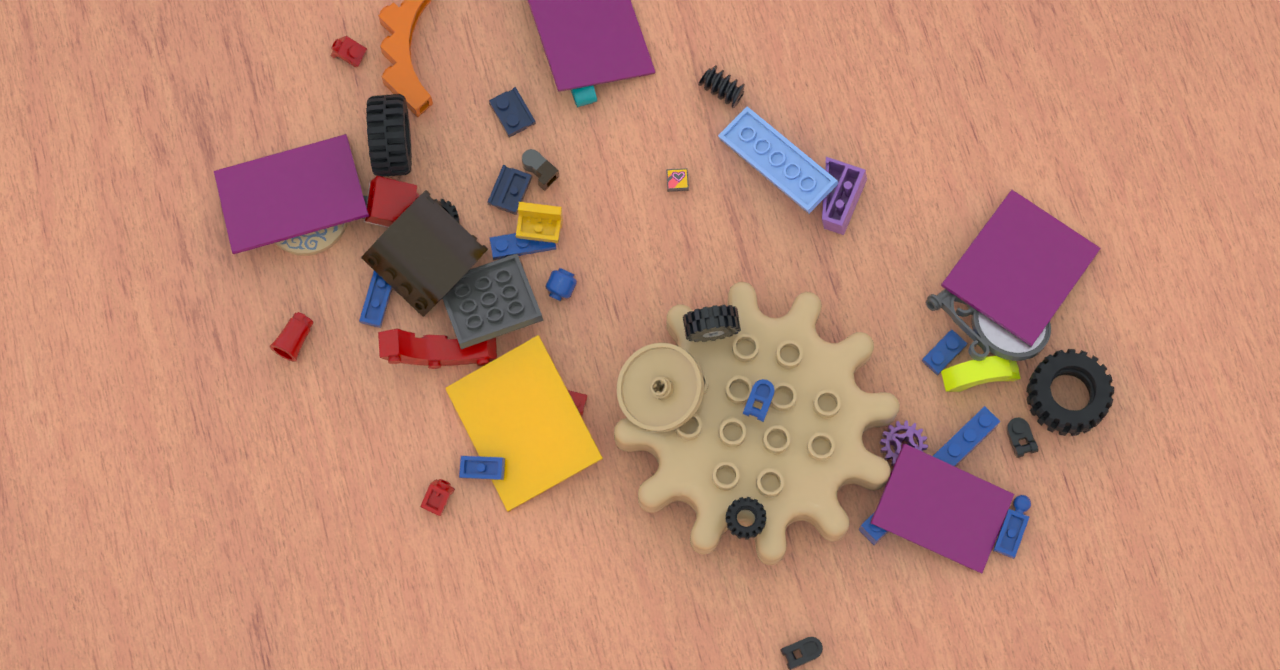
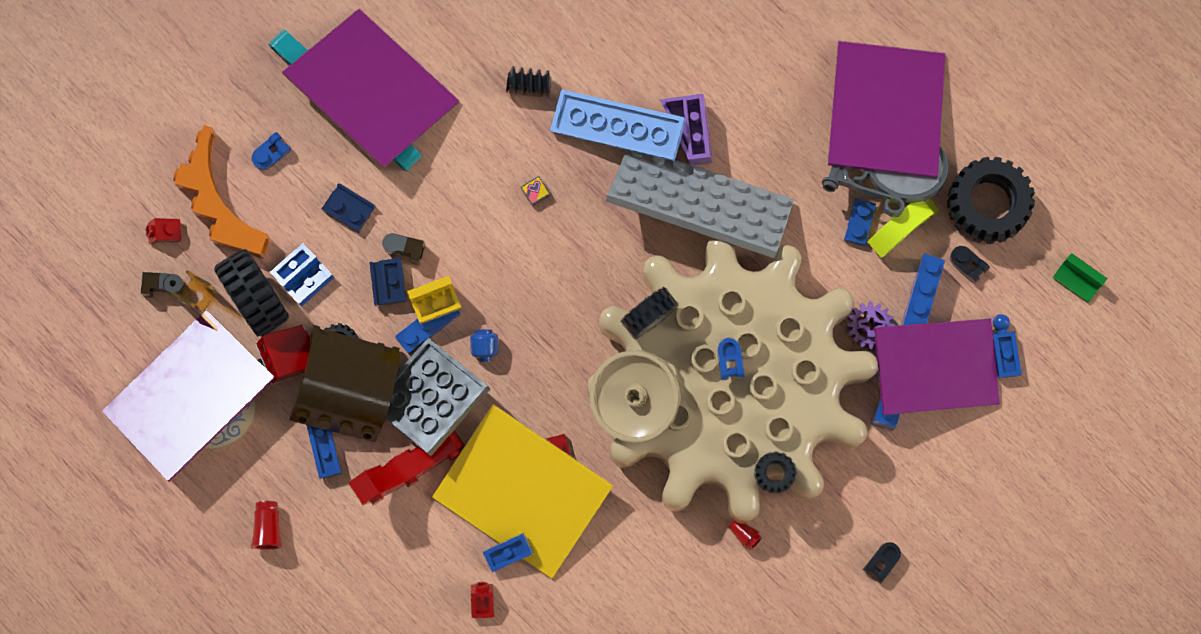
camera: 30 degrees left, 5 degrees up
(322, 92) = (161, 282): none -> leg
(348, 108) = (196, 283): none -> clear yellow piece
(441, 146) = (302, 274): none -> slope
(465, 36) = (264, 158): none -> blue plate
(694, 564) = (745, 534): none -> red cone
(814, 260) = (701, 201): none -> light grey plate
(1114, 502) = (1079, 277): none -> green panel

